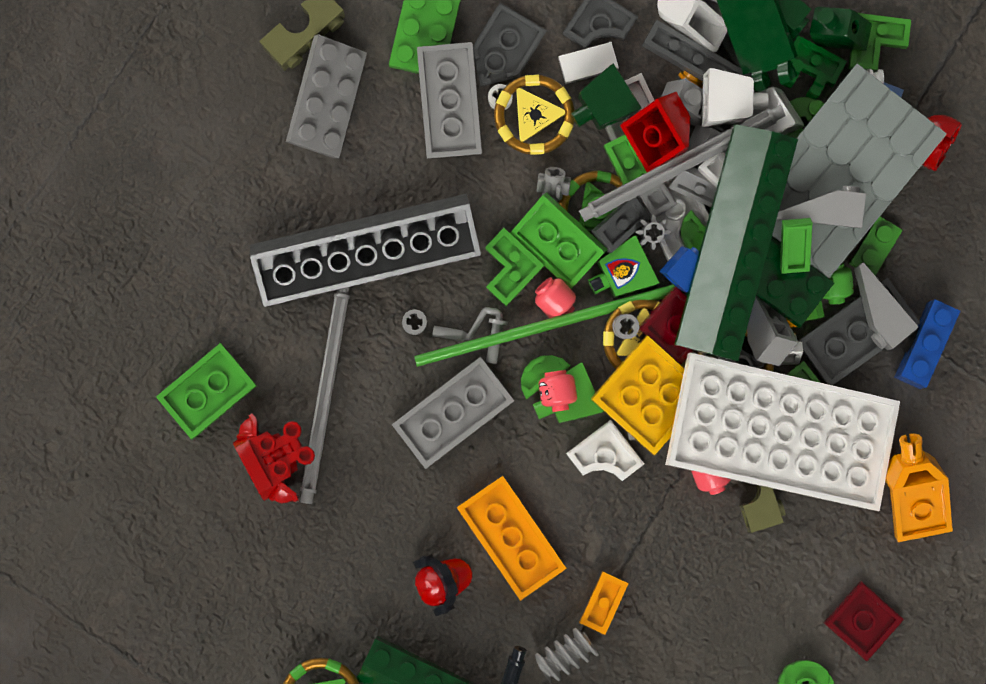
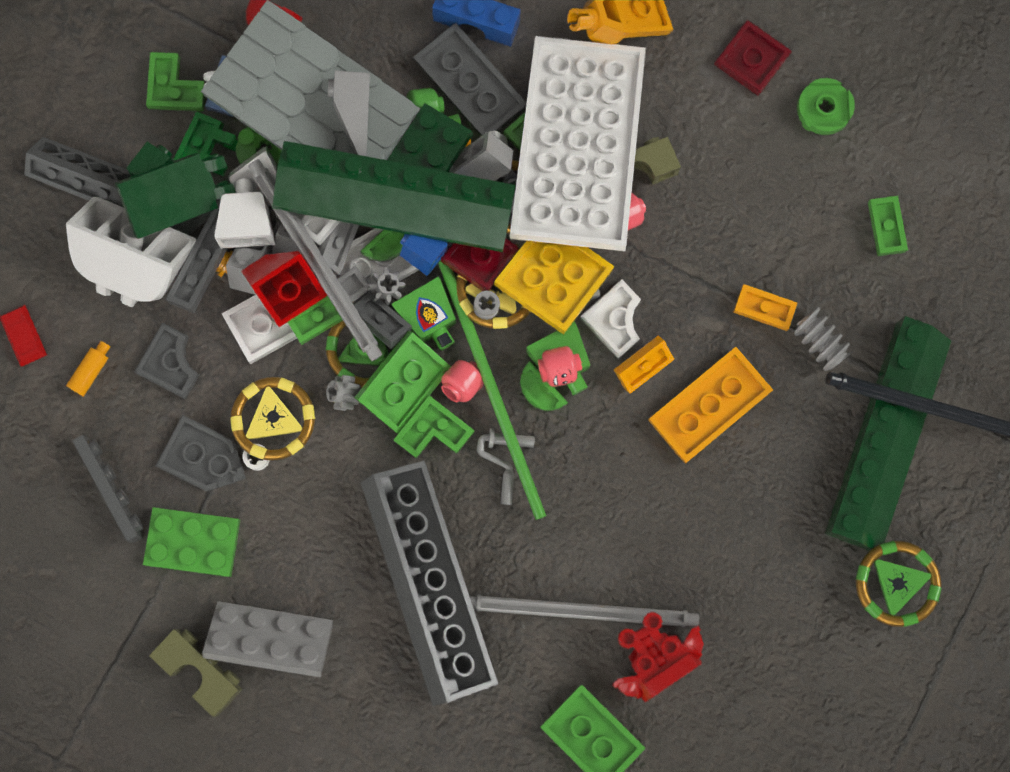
camera: 95 degrees left, 5 degrees down
(408, 328) = (506, 530): light grey bush -> none
(441, 581) = (763, 471): red cap -> none
(449, 100) = (263, 508): light grey plate -> none
(453, 412) = (589, 475): light grey plate -> none
(556, 476) = (644, 364): none -> light orange plate
(587, 62) = (214, 369): white tile -> none
(606, 101) = (253, 344): dark green torso -> none
(795, 245) = (392, 138): bright green tile -> none
(834, 28) = (164, 119): dark green torso -> none
(876, 245) = (387, 70): bright green plate -> none
(883, 313) = (448, 57): light grey slope -> none

